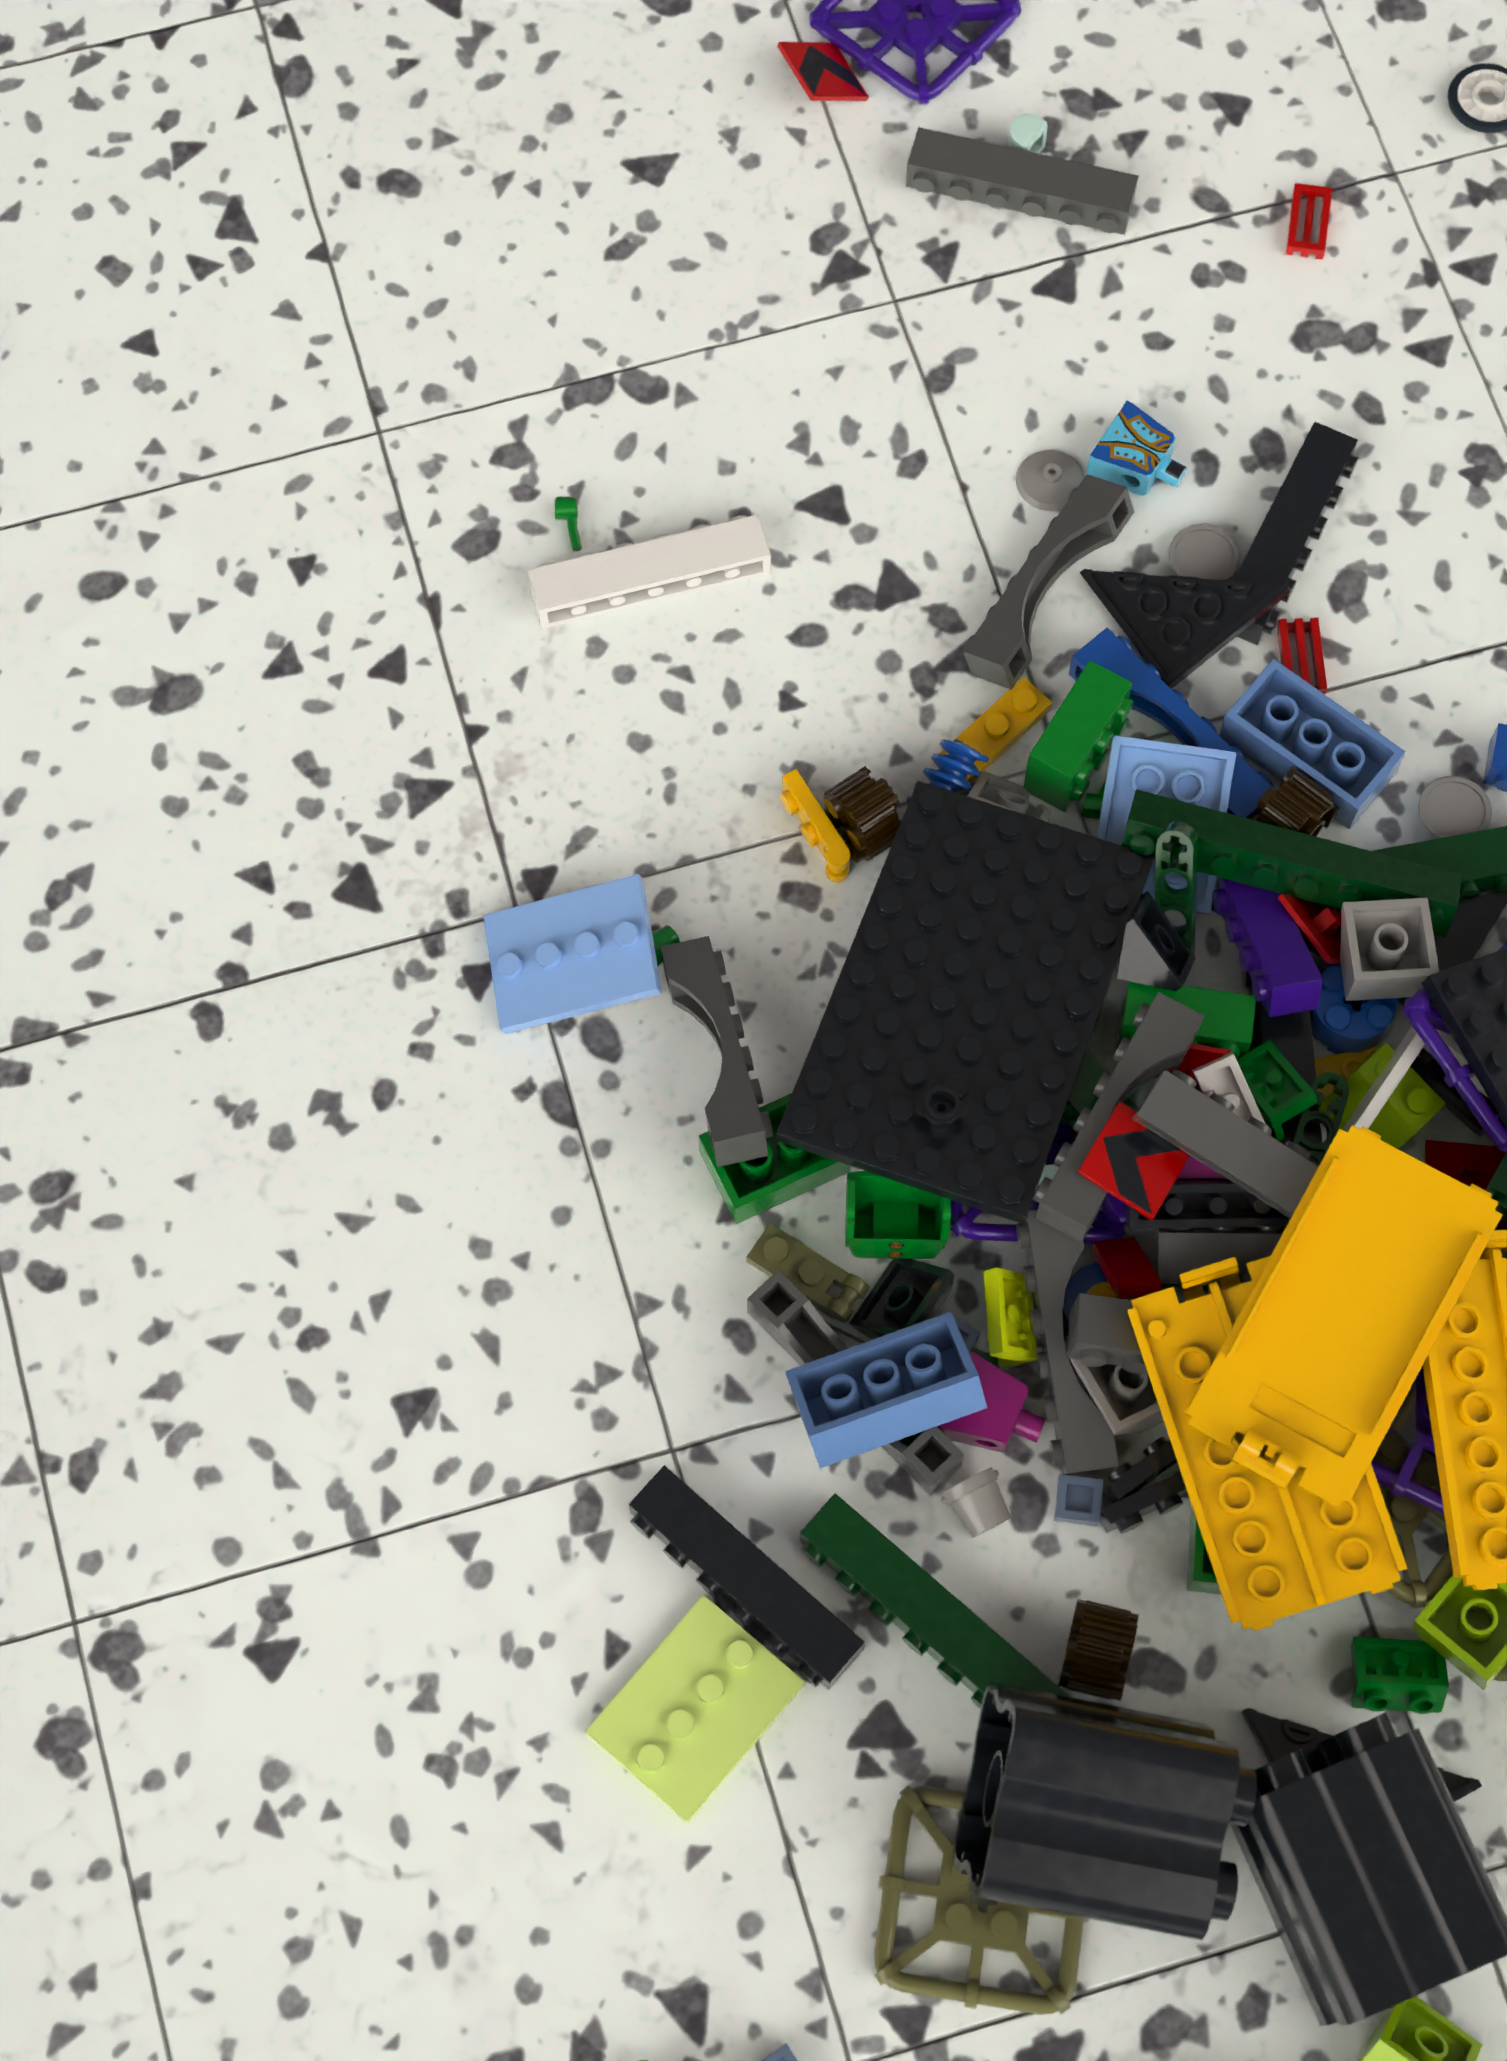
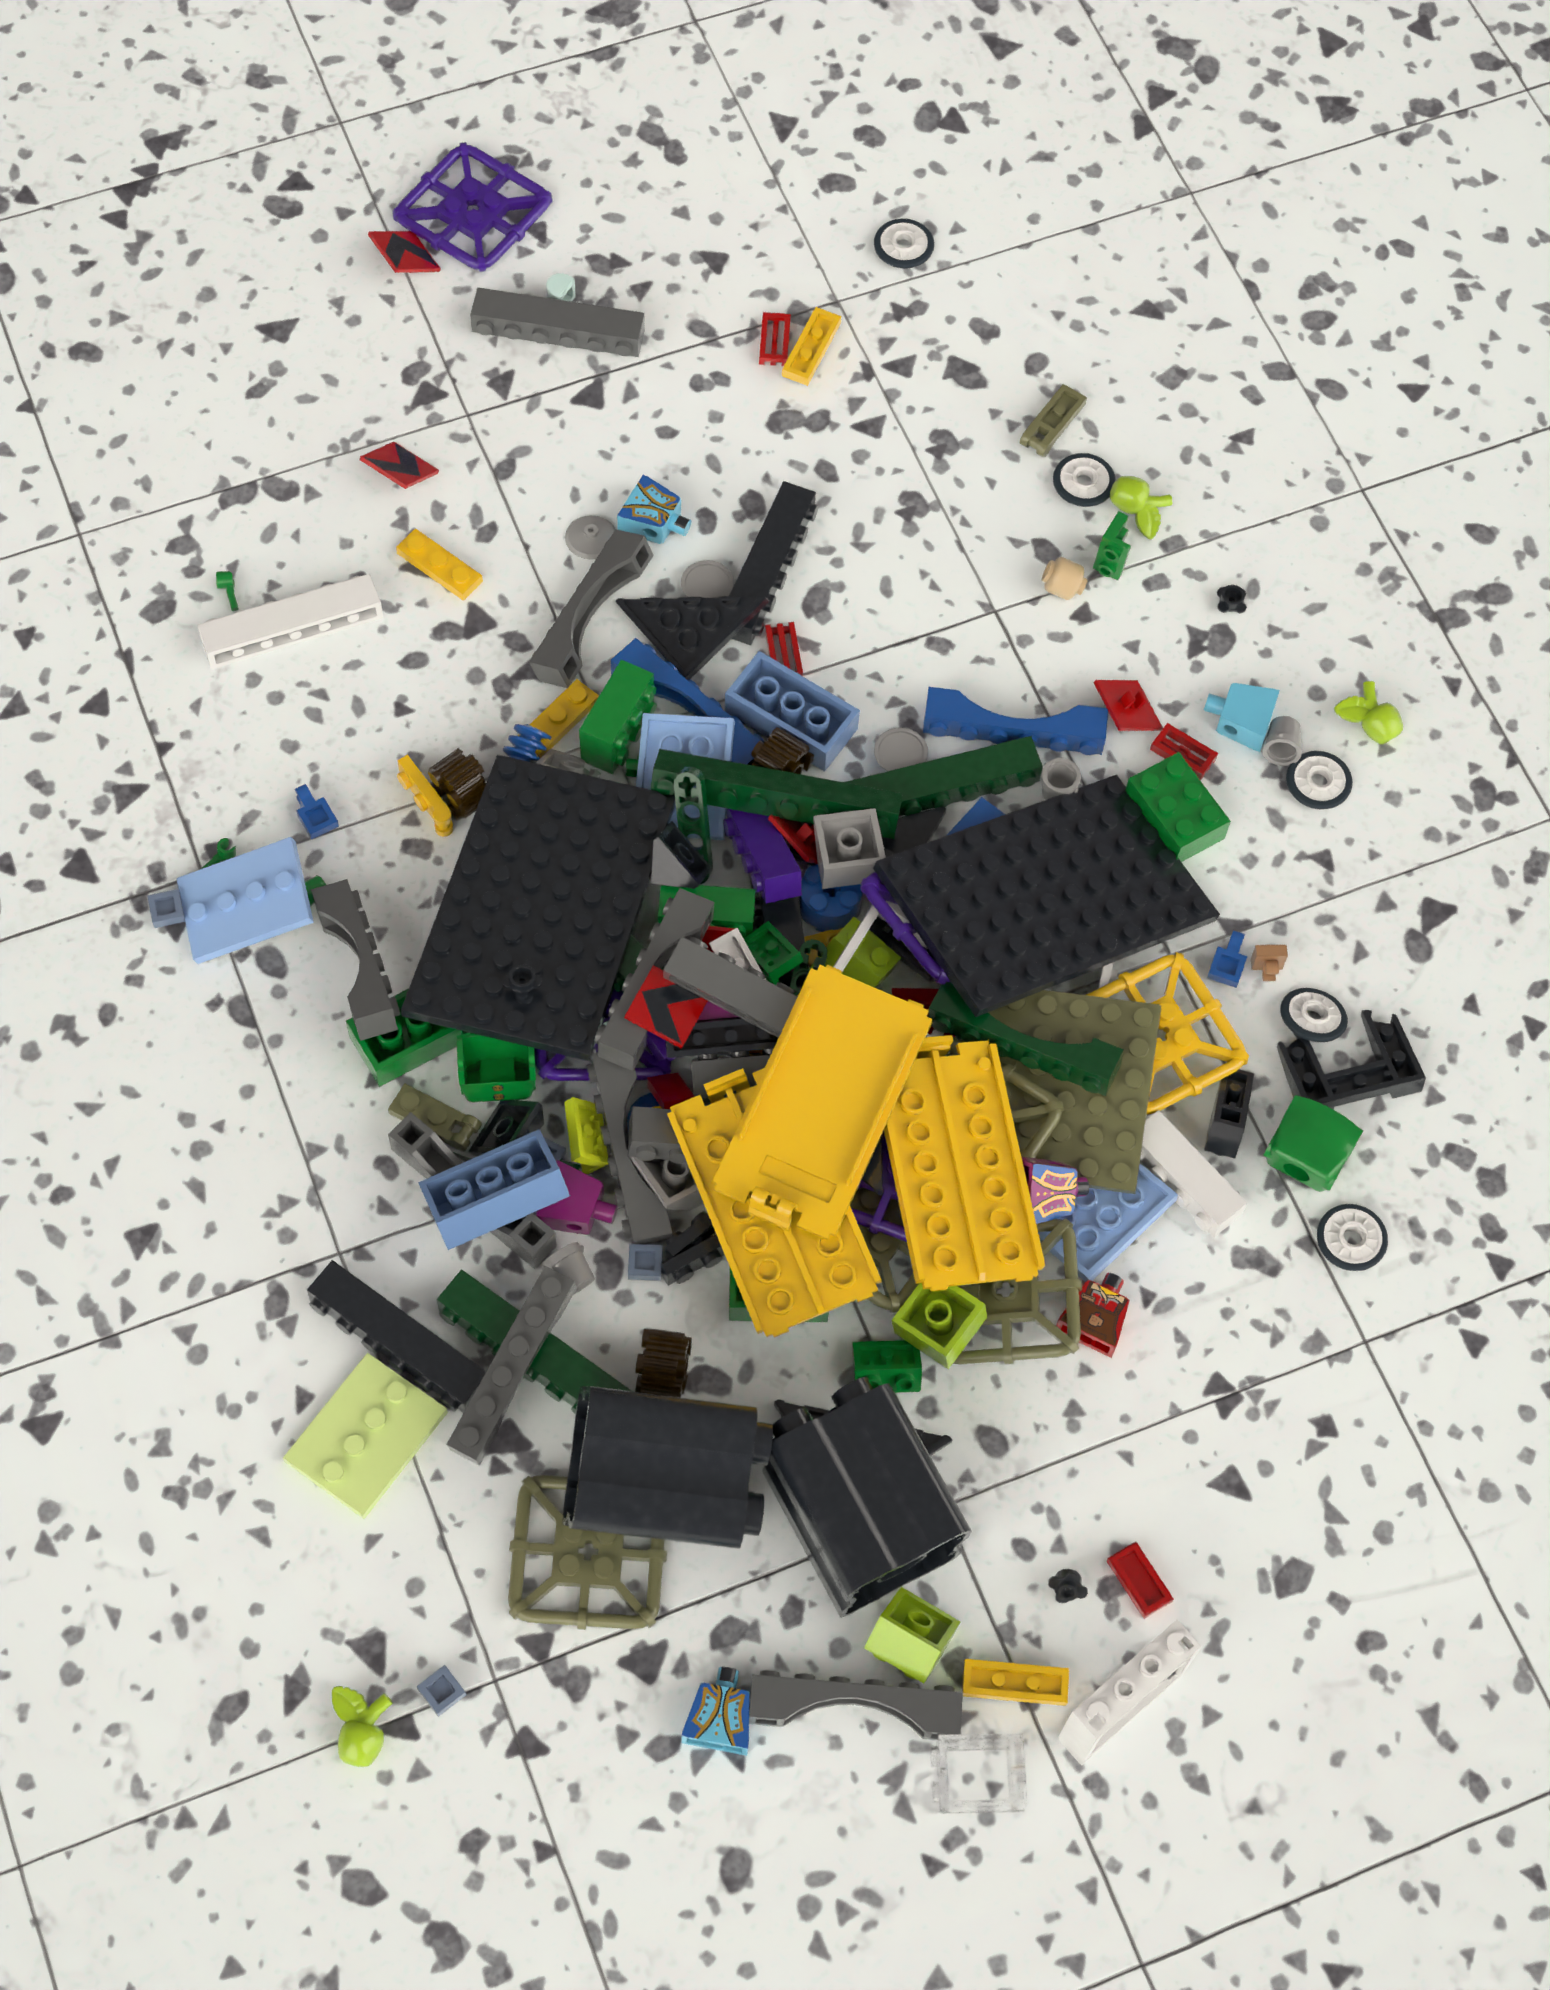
camera: 10 degrees left, 5 degrees down
(468, 956) = (166, 908): none -> sand blue plate
(543, 887) = (222, 854): none -> green hand
(668, 841) = (314, 815): none -> blue plate
(803, 365) = (399, 465): none -> red piece
(848, 505) = (439, 564): none -> yellow plate
(896, 1635) = (523, 1341): none -> dark grey arch
(1358, 234) = (811, 346): none -> yellow plate

